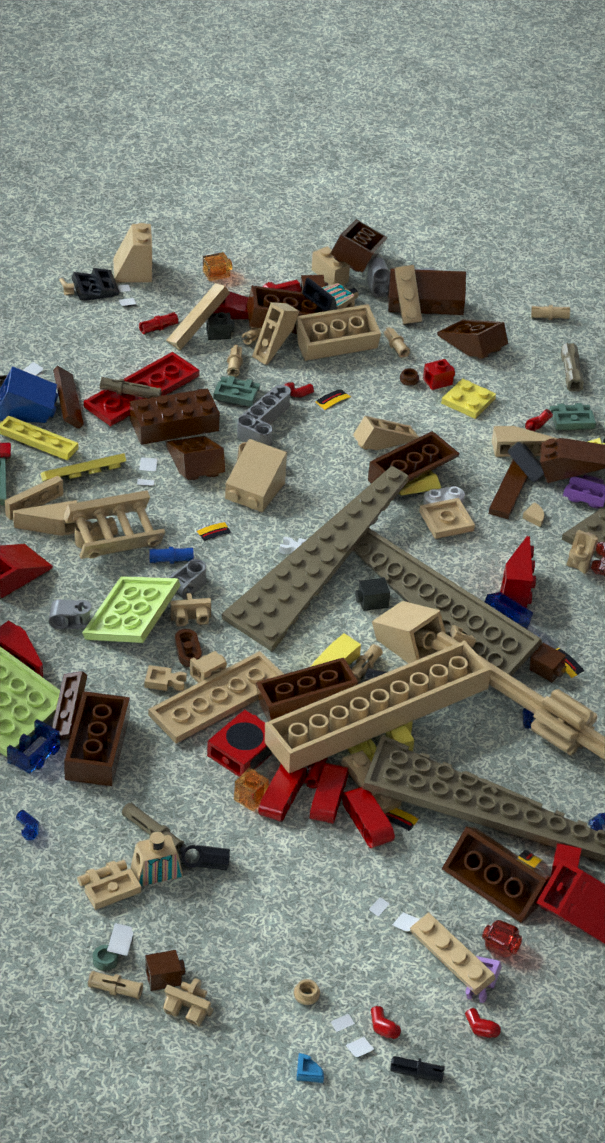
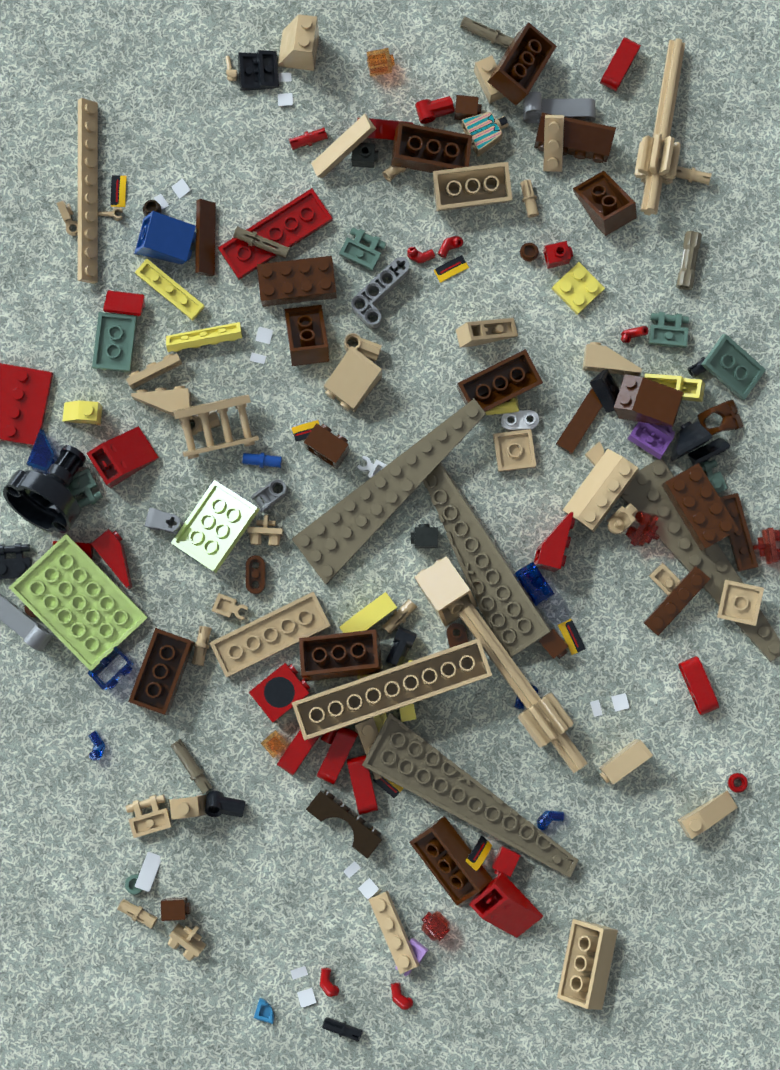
camera: 15 degrees right, 40 degrees up
(68, 702) = (144, 631): plate -> none
(139, 716) = (201, 645): none -> tan pin
(207, 666) = (268, 603): tan brick -> none
(235, 361) = (369, 204): tan axle -> none
(242, 528) = (326, 445): none -> reddish brown brick
(275, 330) = (411, 182): tan slope -> none
(307, 986) = (277, 951): tan plate -> none
(313, 241) = (481, 30): none -> dark tan pin
(319, 296) = (462, 144): black slope -> none
(326, 380) = (449, 244): none -> red arm
(331, 843) = (364, 838): none -> dark brown arch
(452, 249) = (620, 64): none -> red beam
(456, 633) = (484, 609): tan tile -> none
(513, 294) = (660, 154): none -> tan axle
(556, 530) = (601, 489): none -> tan slope

